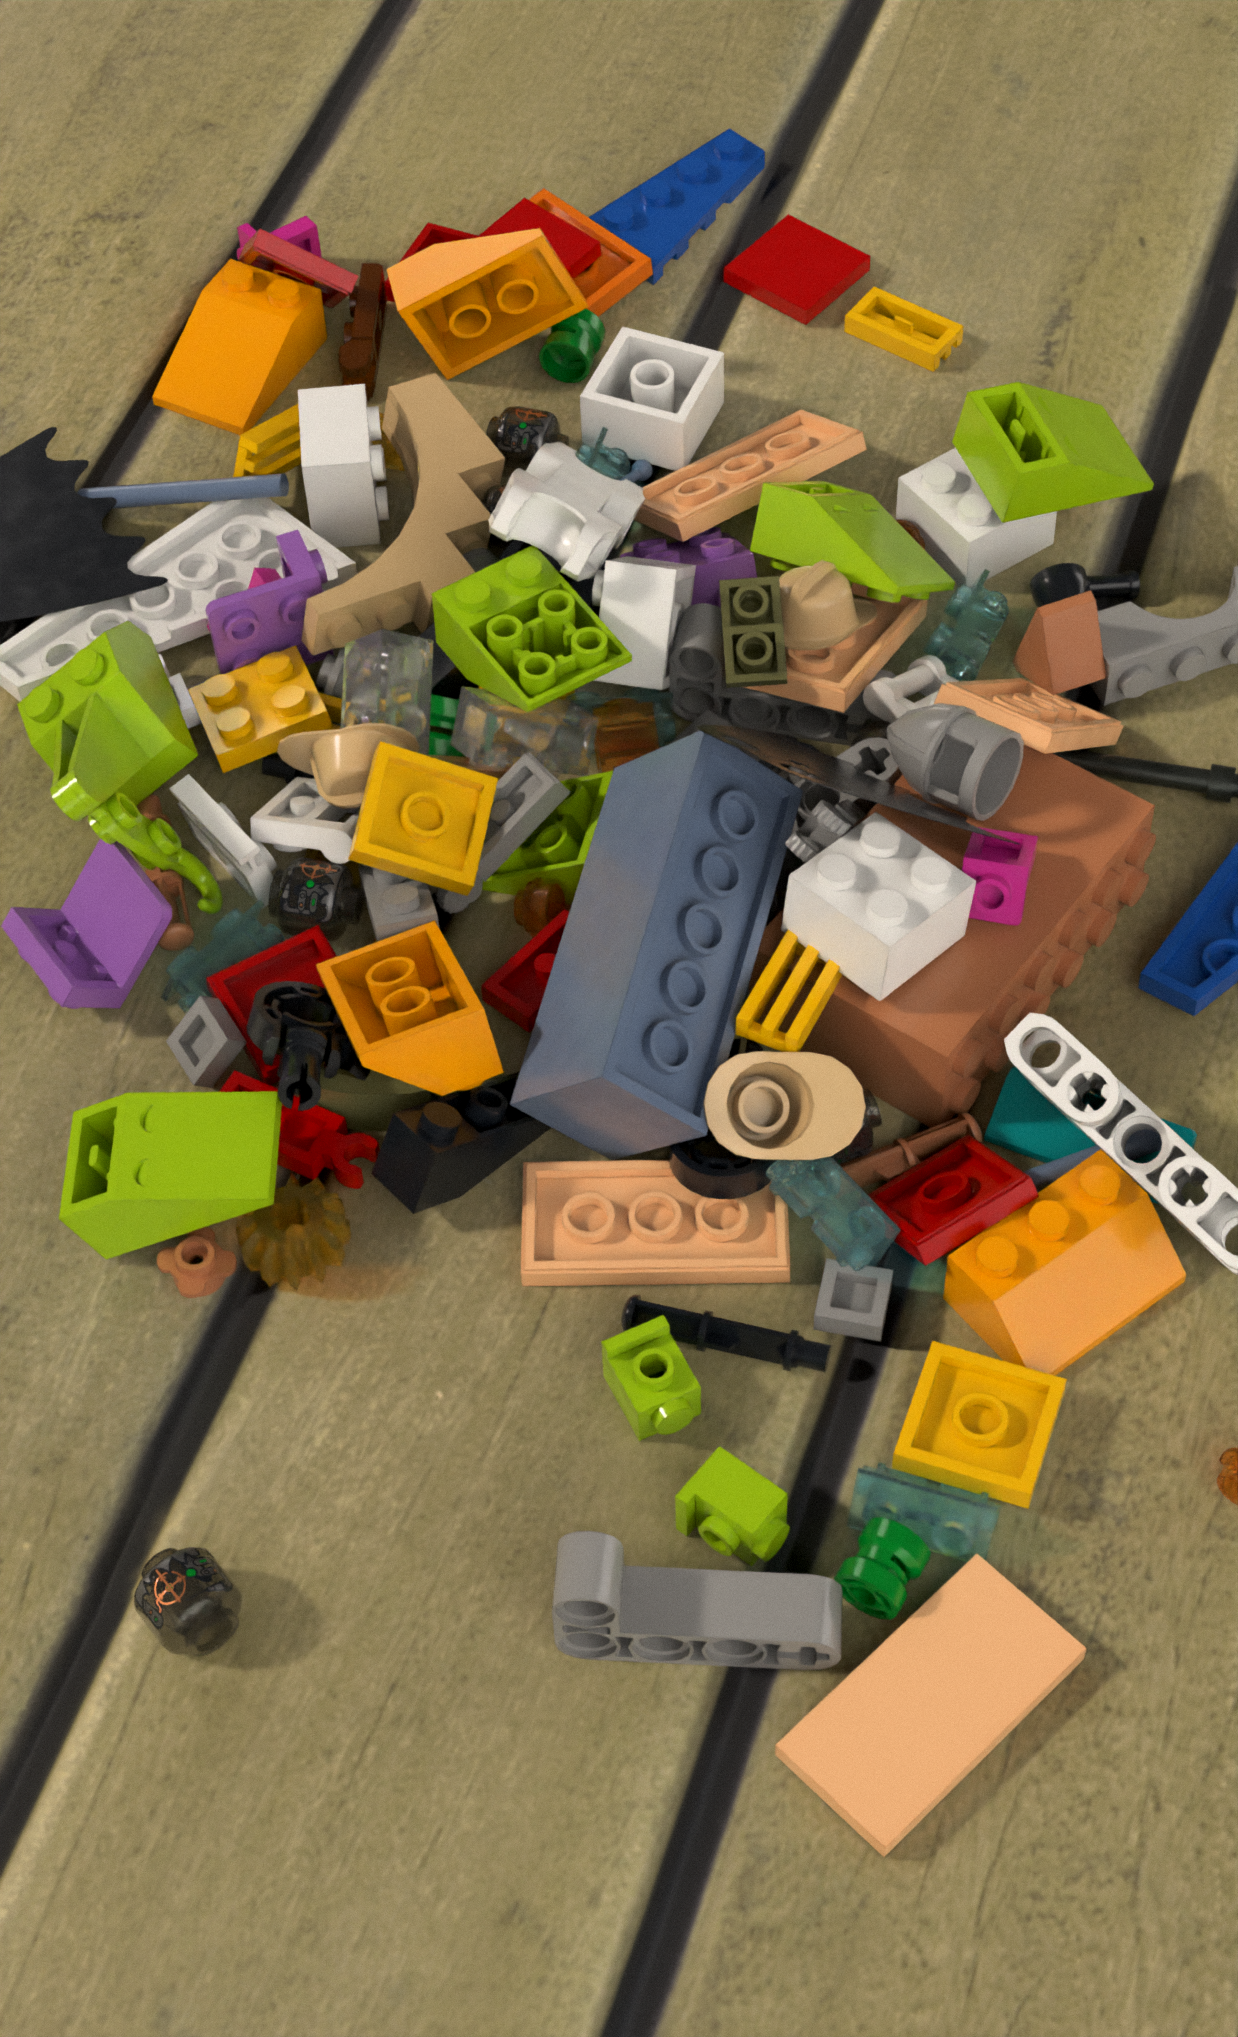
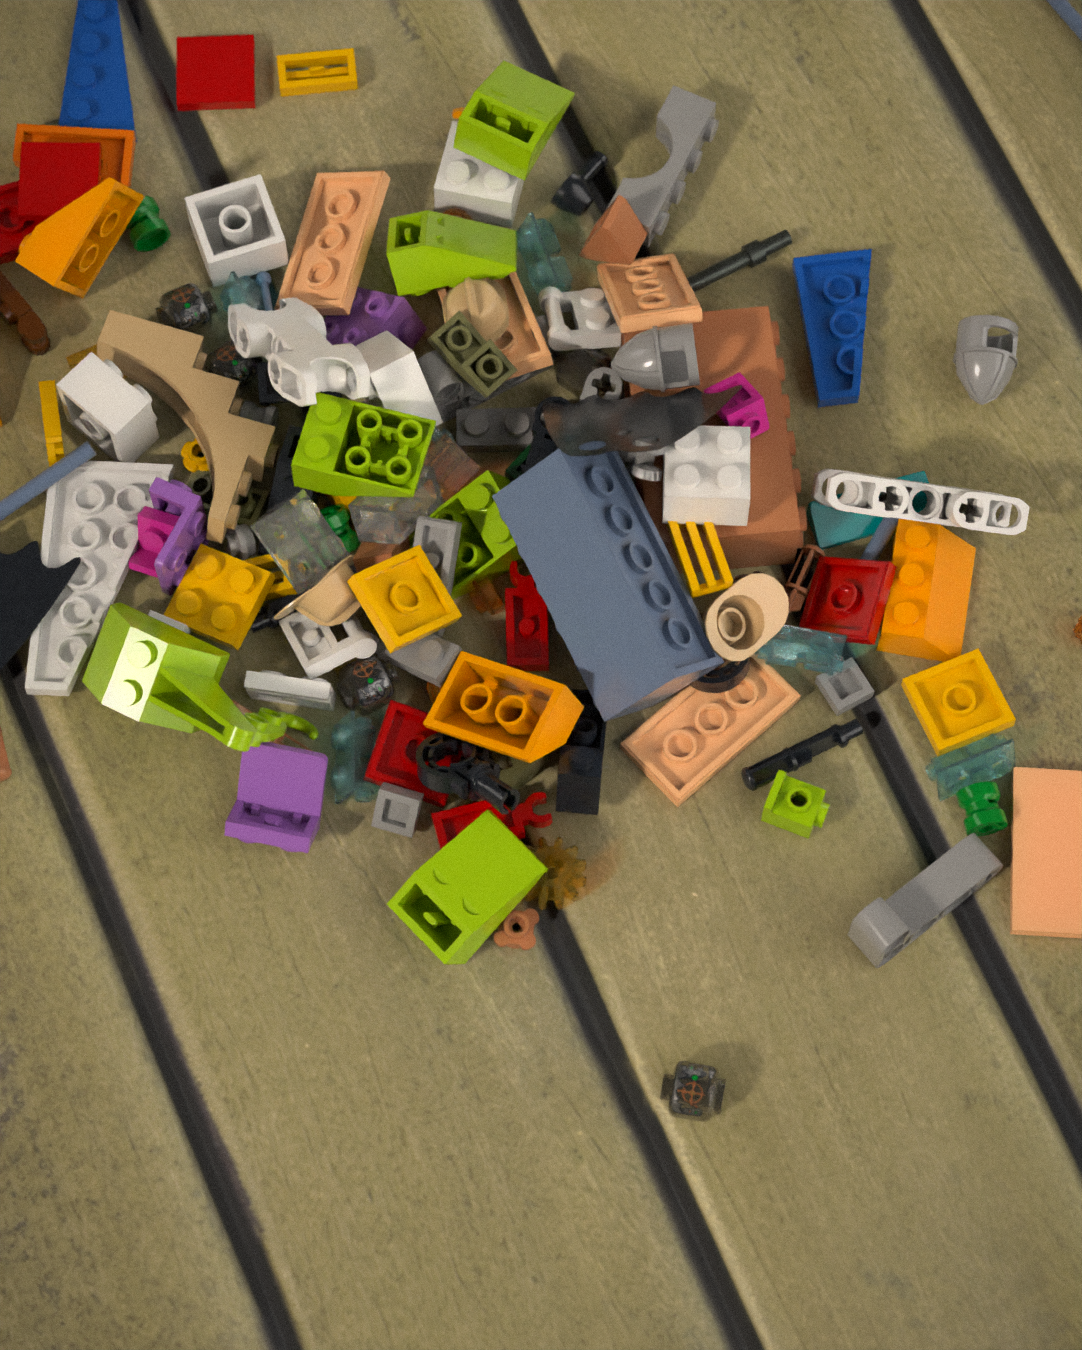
camera: 45 degrees left, 15 degrees up
(733, 1509) = (893, 836): lime brick -> none

